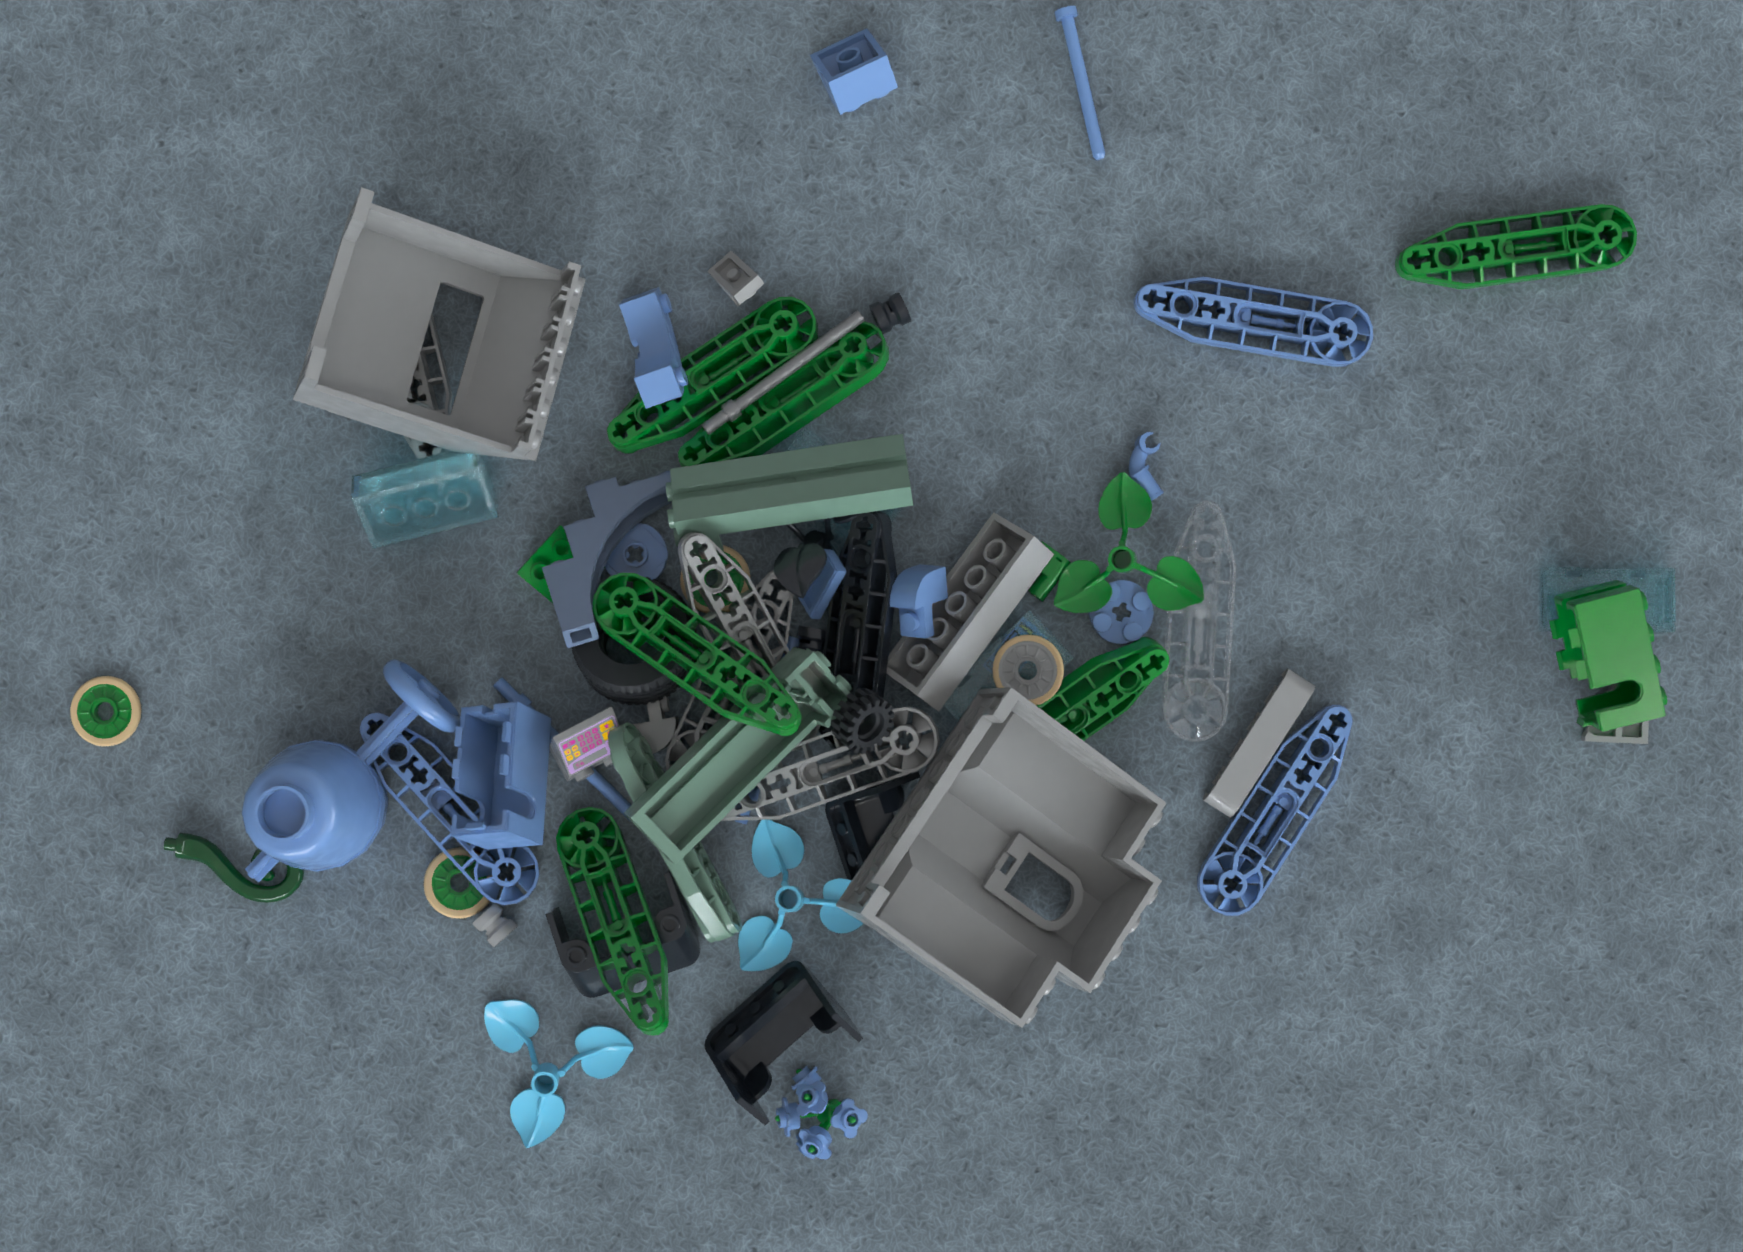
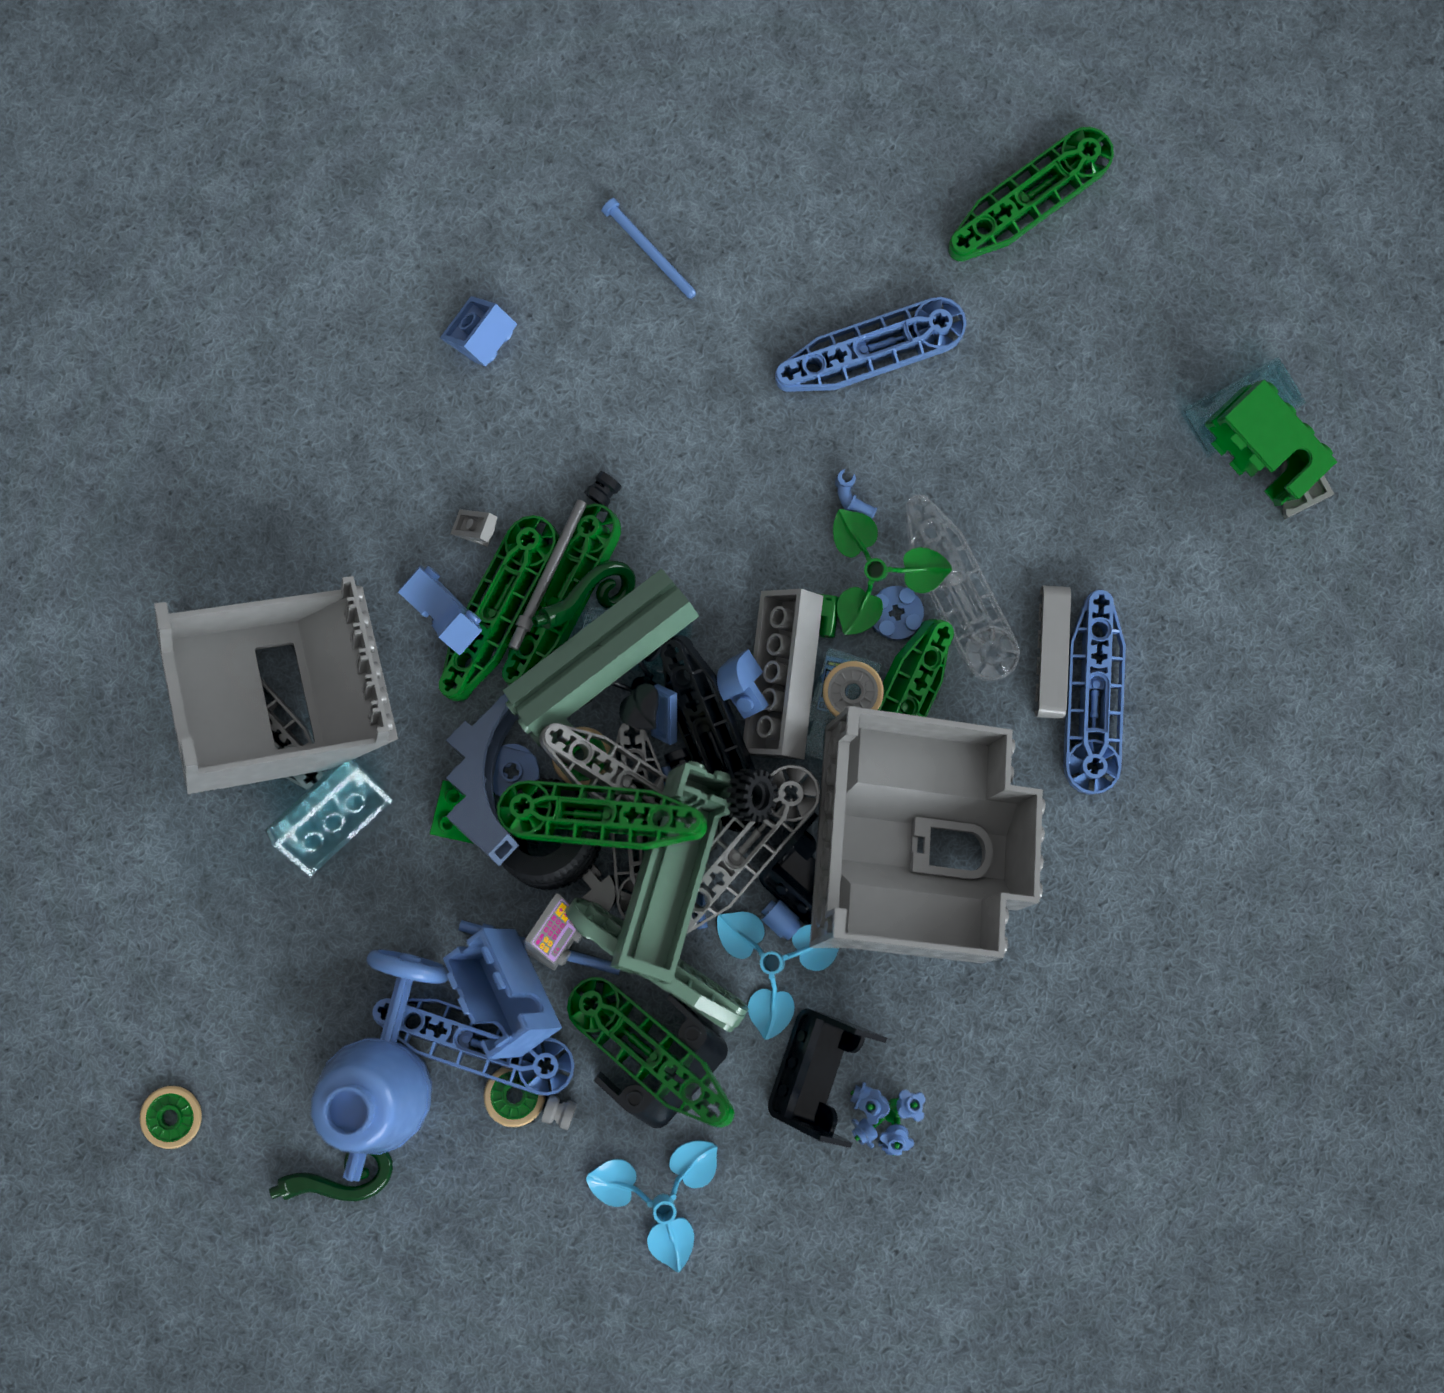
camera: 25 degrees left, 5 degrees down
(779, 420) = (563, 610): none -> dark green plant
(824, 858) = (781, 919): none -> medium blue brick

